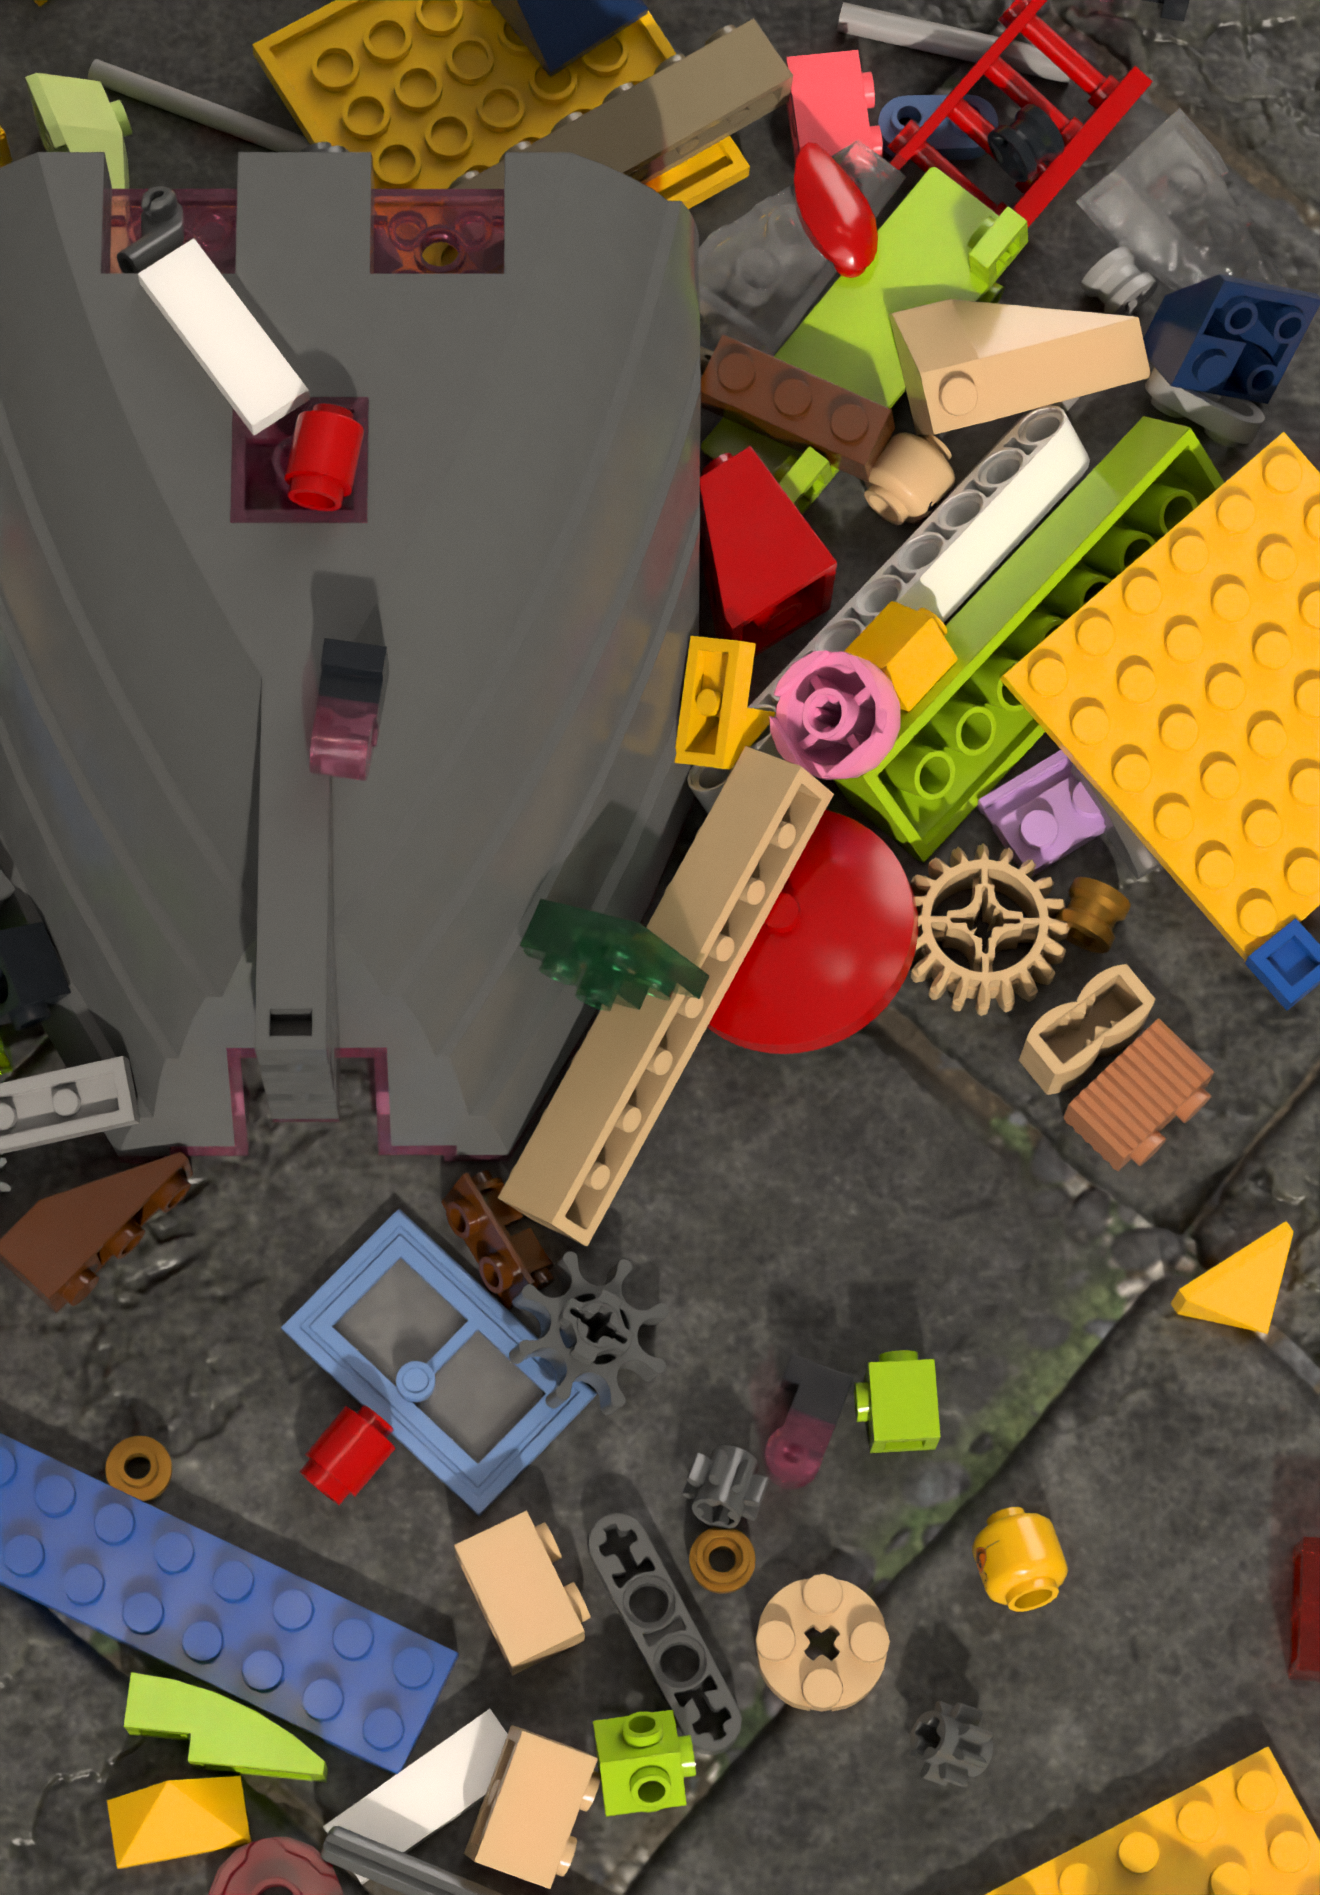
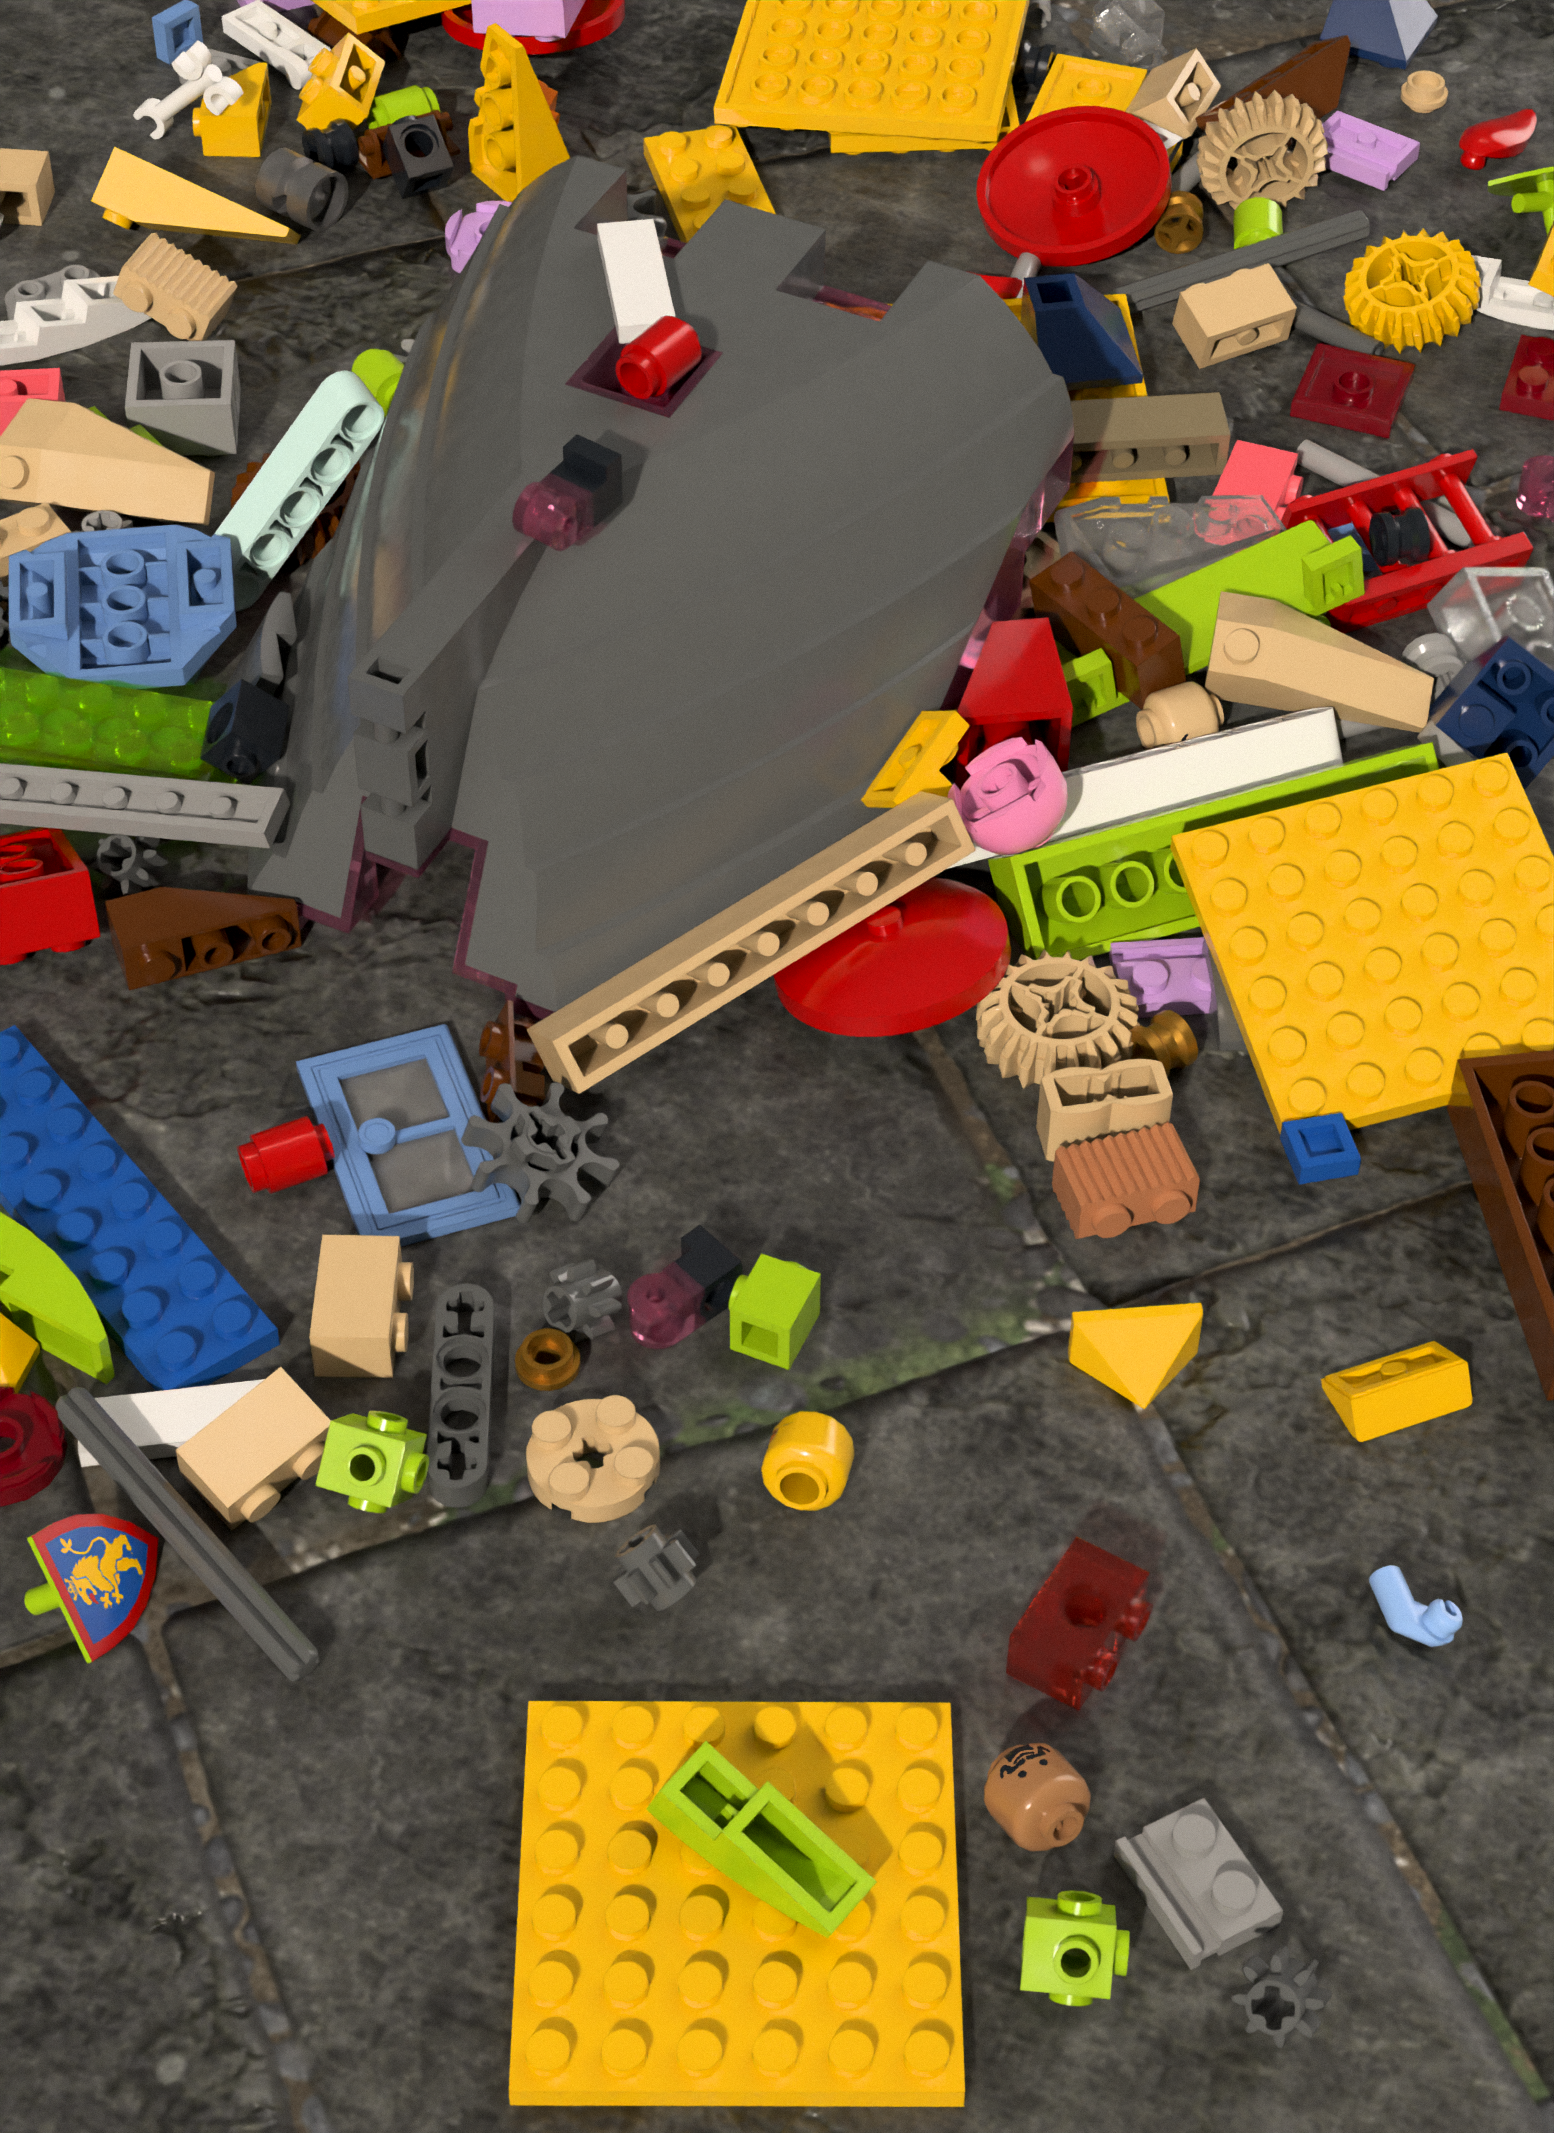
camera: 30 degrees right, 25 degrees down
(154, 1482) = (115, 1104): pearl gold plate -> none
(607, 957) = (712, 861): clear green plate -> none
(834, 212) = (1211, 518): red arm -> none
(907, 649) = (1100, 798): yellow brick -> none

